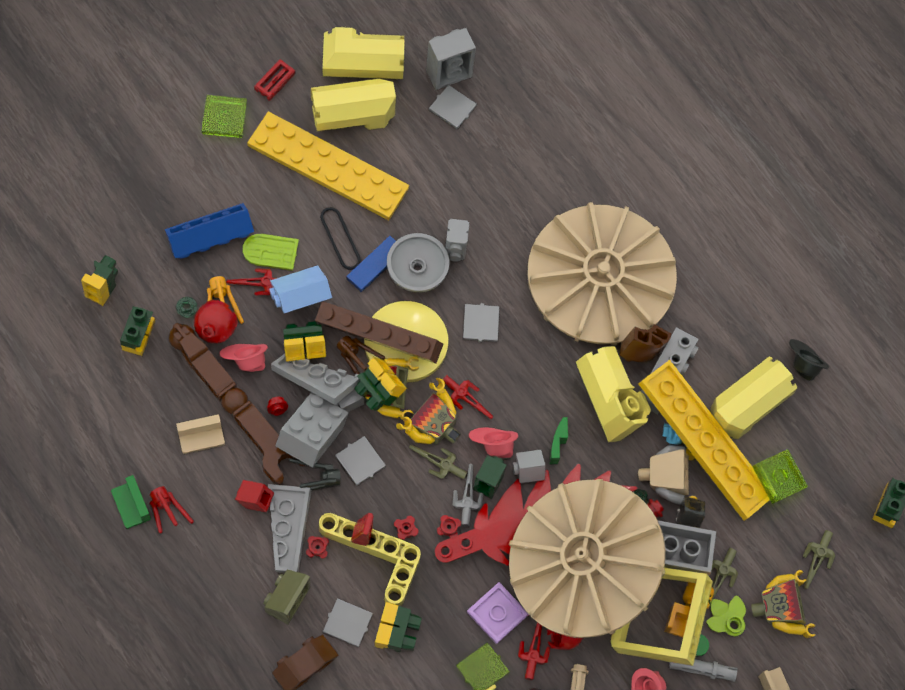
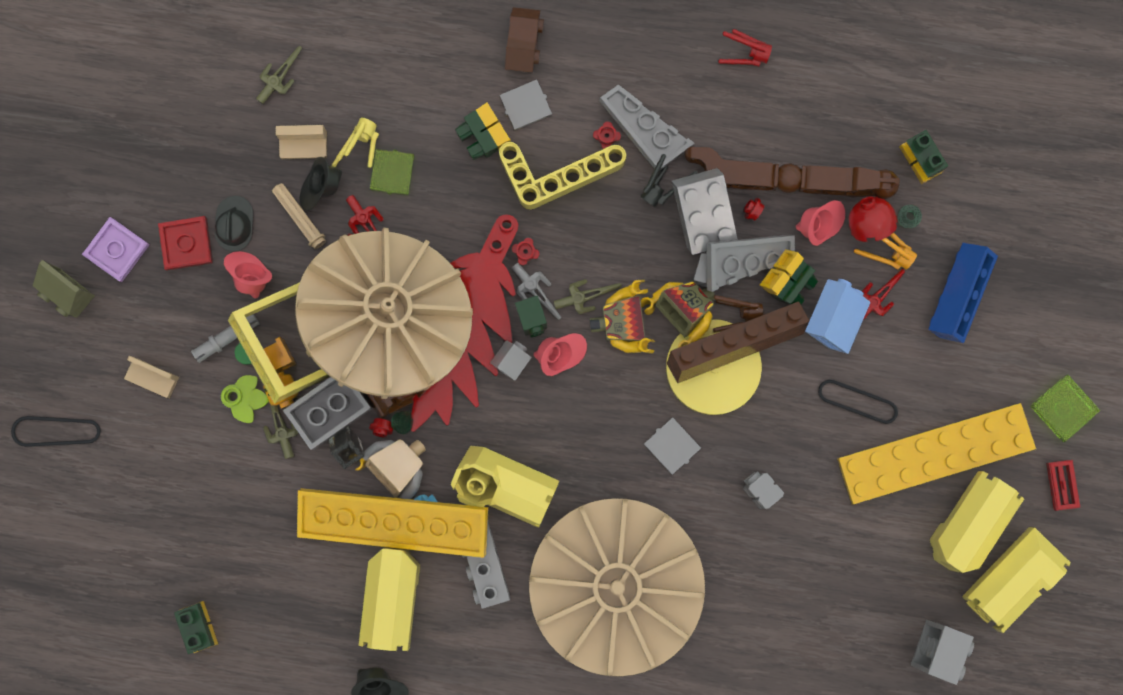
camera: 145 degrees right, 15 degrees up
(102, 282) = (995, 164): hips -> none
(130, 503) = (777, 28): green panel -> none
(200, 434) = (785, 129): tan panel -> none
(254, 496) = (692, 120): red brick -> none
(271, 251) = (898, 332): lime window -> none
(287, 596) = (587, 72): olive slope -> none
(360, 460) = (646, 235): light grey piece -> none
(363, 530) = (580, 168): red slope -> none
(371, 266) = (806, 407): blue tile -> none
(381, 383) = (690, 295): hips -> none
(411, 531) = (557, 223): red plate -> none
(420, 251) = (789, 435): light grey dish -> none
(452, 107) = (895, 618): light grey piece -> none
(461, 392) = (627, 370): red piece -> none
(497, 613) = (424, 220): lavender tile -> none
(560, 437) = (512, 411): green slope -> none
(644, 344) = (519, 551): reddish brown brick -> none
(780, 476) = (306, 557): clear neon green tile -> none
(784, 605) = (206, 448): torso -> none
(820, 551) = (218, 527): olive piece -> none

